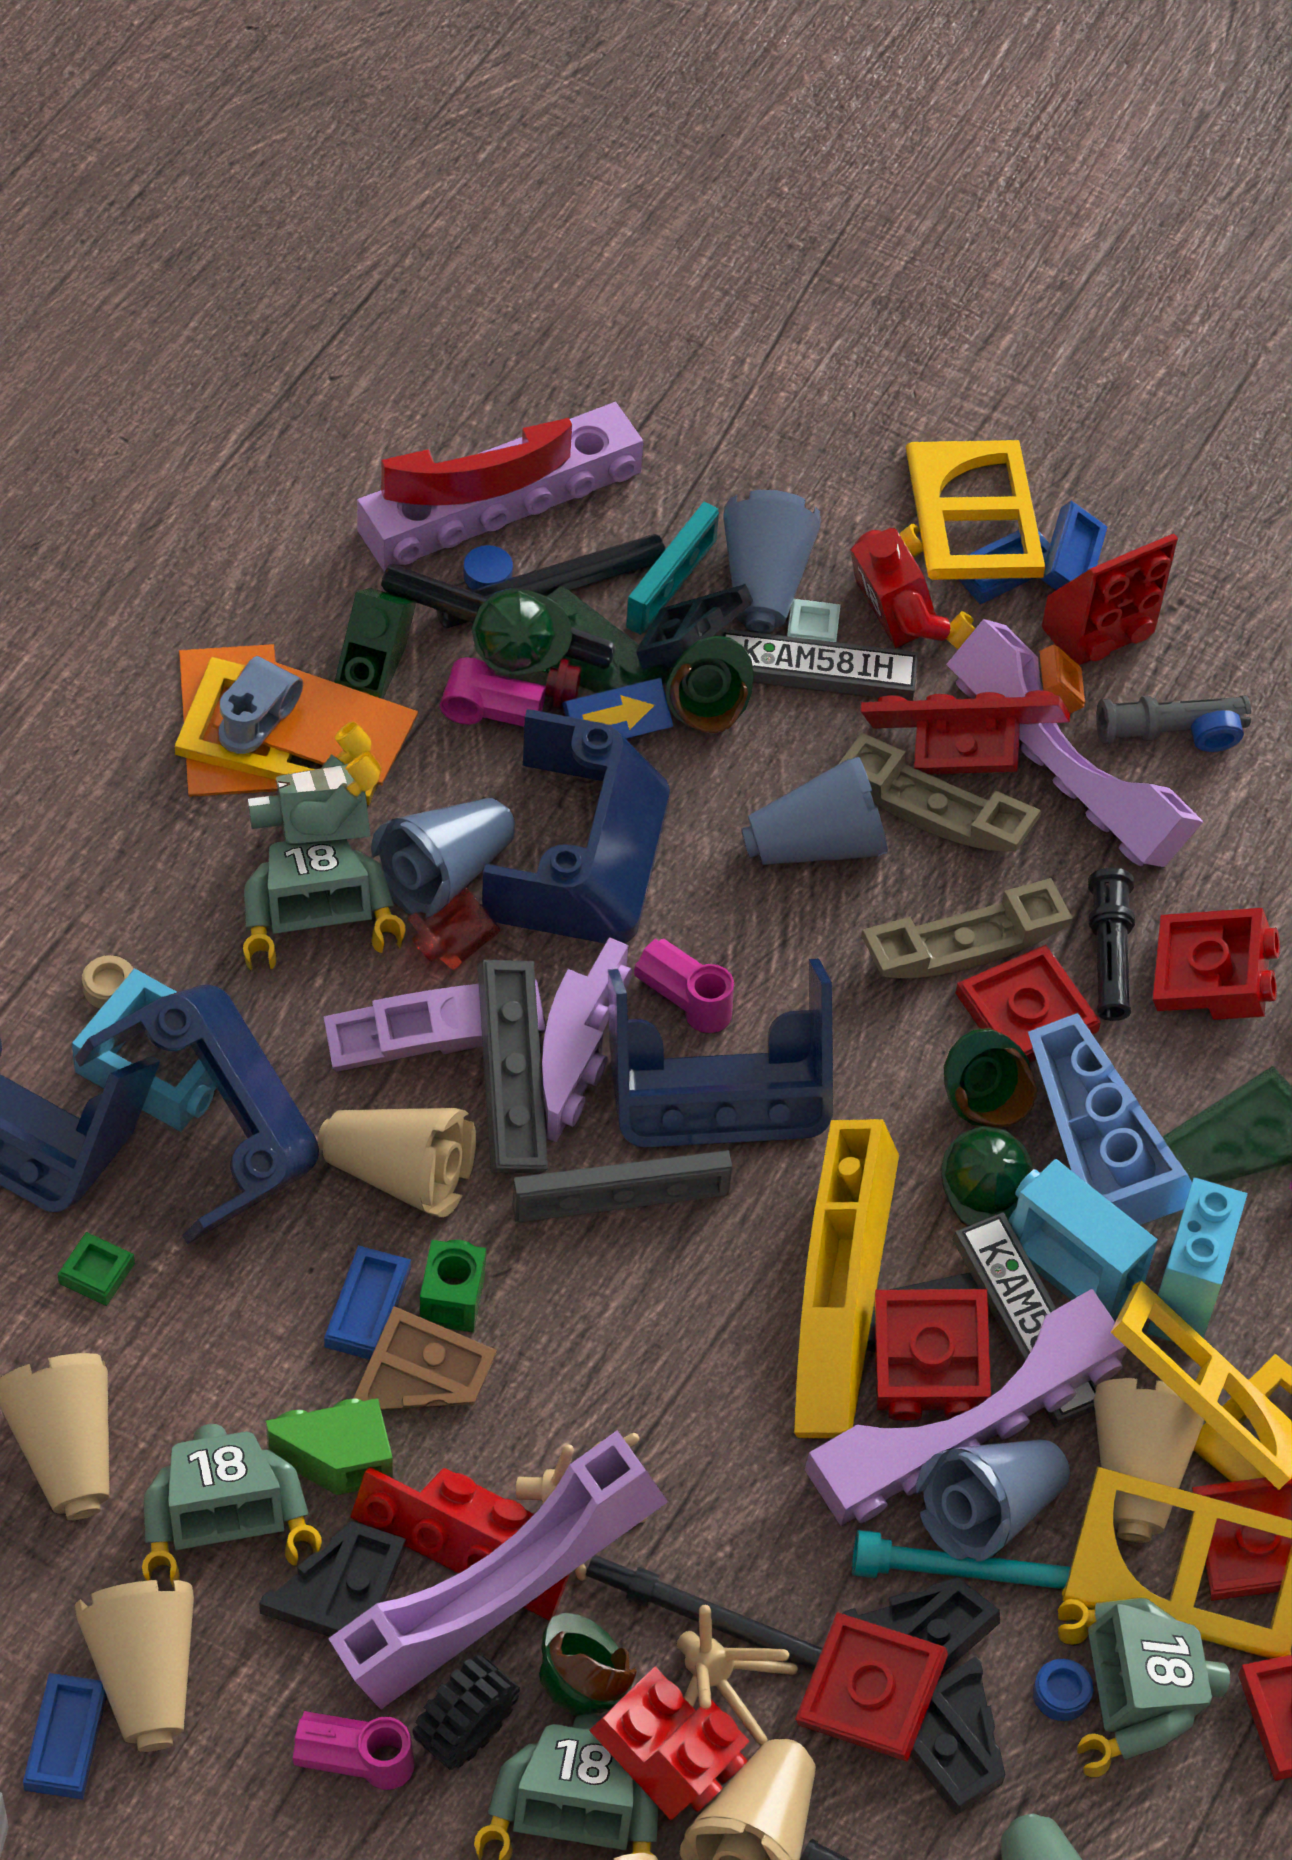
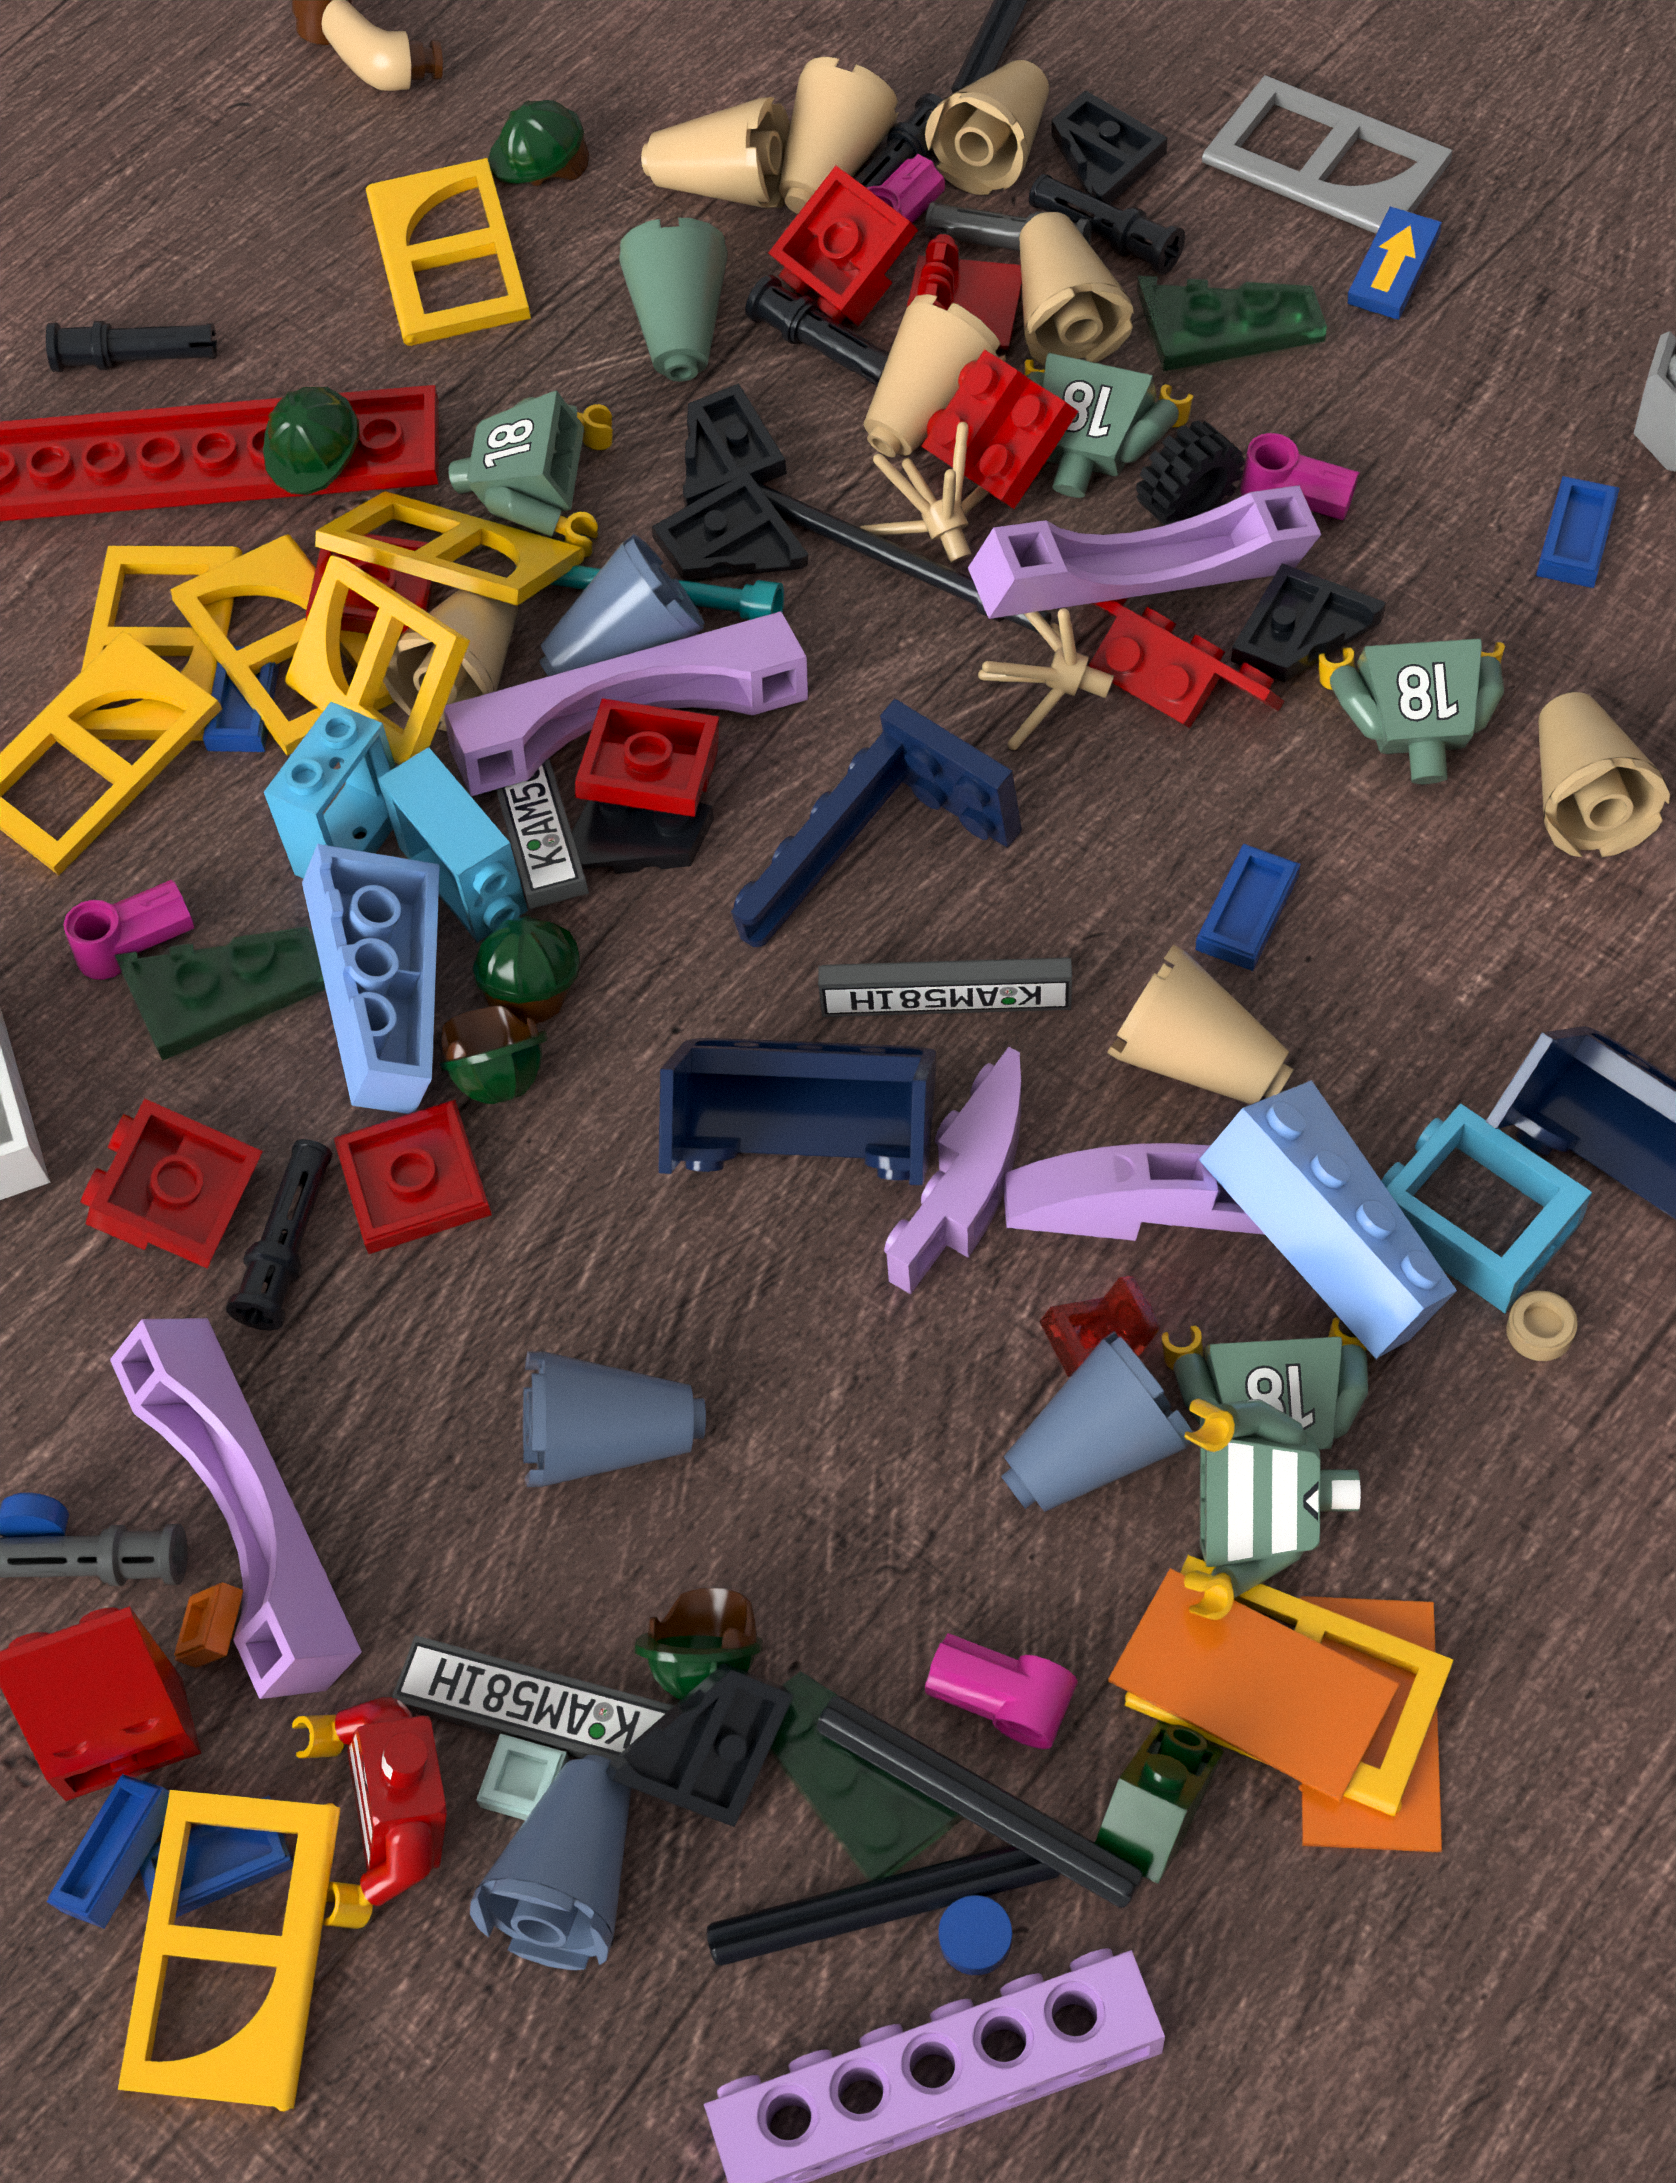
camera: 160 degrees left, 5 degrees up
(96, 1268) = (1553, 973): green tile -> none
(142, 1656) = (1509, 567): tan cone -> none
(256, 705) = (1333, 1686): sand blue piece -> none
(279, 1139) = (1424, 1124): dark blue windscreen -> none
(299, 1018) = (1330, 1215): none -> light blue wedge
(333, 1443) = (1298, 744): bright green slope -> none
(424, 1365) = (1193, 818): medium nougat wing -> none
(448, 1304) = (1158, 876): green brick -> none
(481, 476) = (1071, 2025): red slope -> none
(512, 1066) = (1053, 1121): dark grey tile -> none
(521, 632) = (957, 1728): dark green piece -> none
(563, 683) = (898, 1693): dark red plate -> none
(583, 1666) = (1068, 495): piece -> none
(599, 887) = (841, 1504): dark blue windscreen -> none
(628, 709) = (832, 1640): blue tile -> none
(667, 1357) = (910, 751): none -> dark blue bracket
(672, 568) = (703, 1884): teal tile -> none
(688, 985) = (821, 1230): dark pink piece -> none
(843, 1274) = (716, 863): yellow slope -> none
(872, 1686) = (794, 473): red tile -> none
(939, 806) = (432, 1456): dark tan slope -> none
(966, 733) = (369, 1528): red bracket -> none
(969, 938) = (459, 1267): dark tan slope -> none
(1062, 1689) = (608, 487): blue tile -> none

